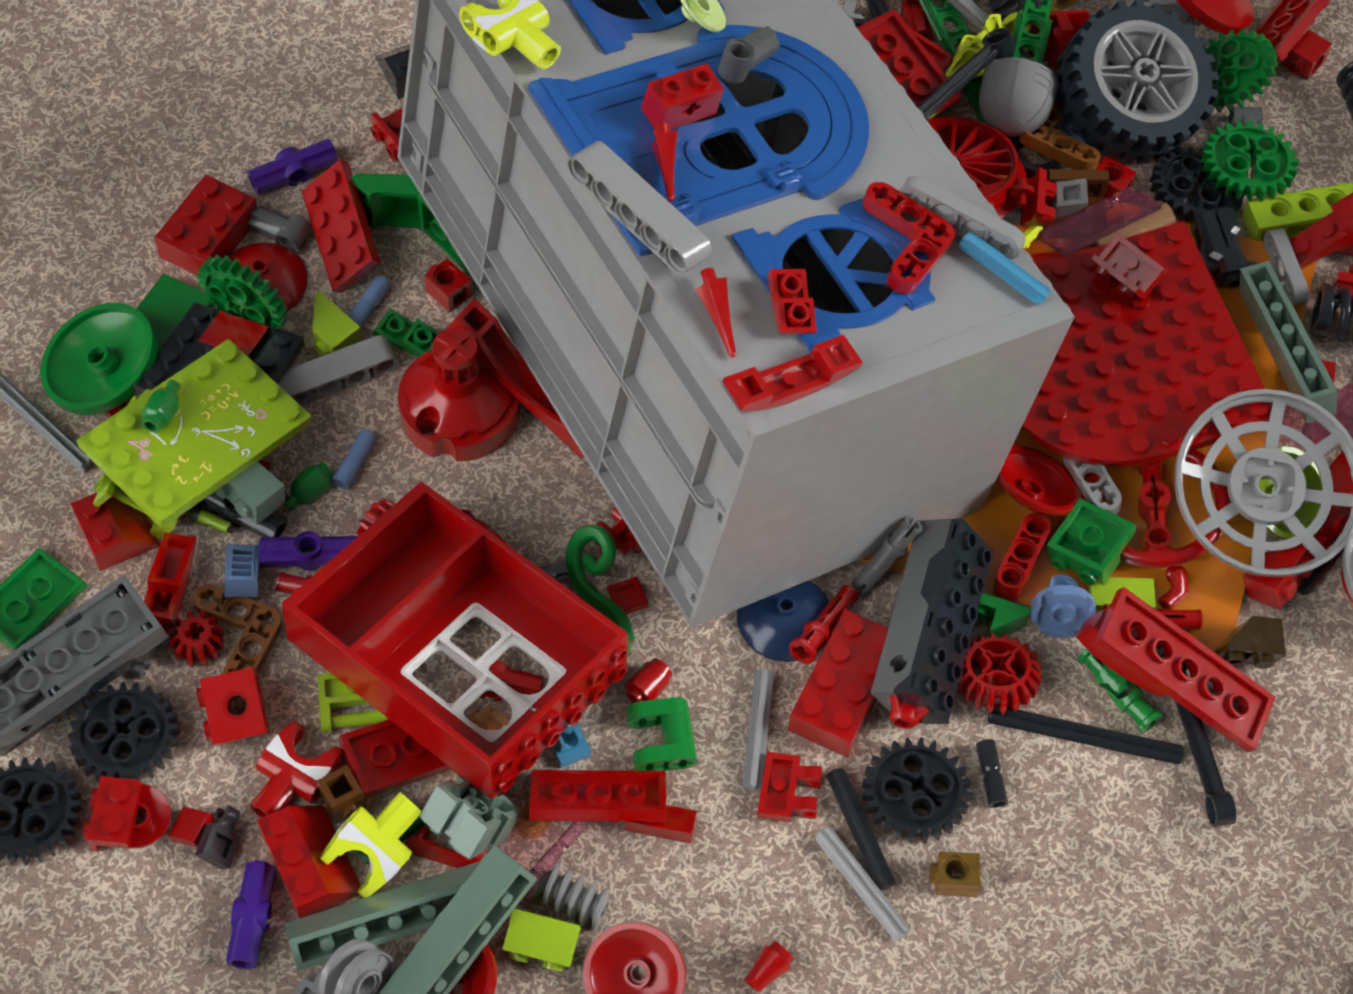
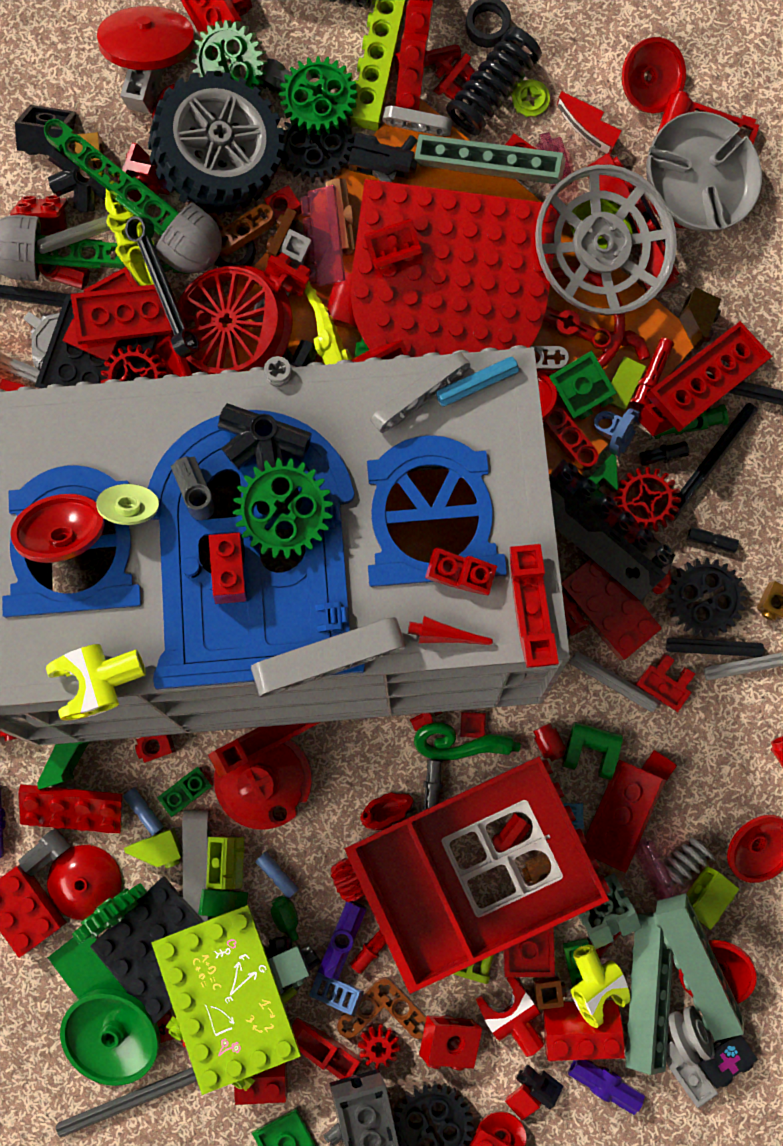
camera: 60 degrees left, 25 degrees up
(161, 407) = (202, 1022): green plant -> none
(240, 331) = (138, 930): red sticker -> none
(301, 392) = (221, 901): none -> green slope
(347, 397) = (225, 862): none -> lime brick
(664, 150) = (271, 605): red piece -> none
(782, 117) = (262, 490): none -> green gear
(828, 94) = (250, 444): none -> black piece
(912, 105) = (275, 363): none -> light grey bush
(922, 239) = (431, 434): red beam -> none
(1065, 675) = (664, 453): none -> black axle

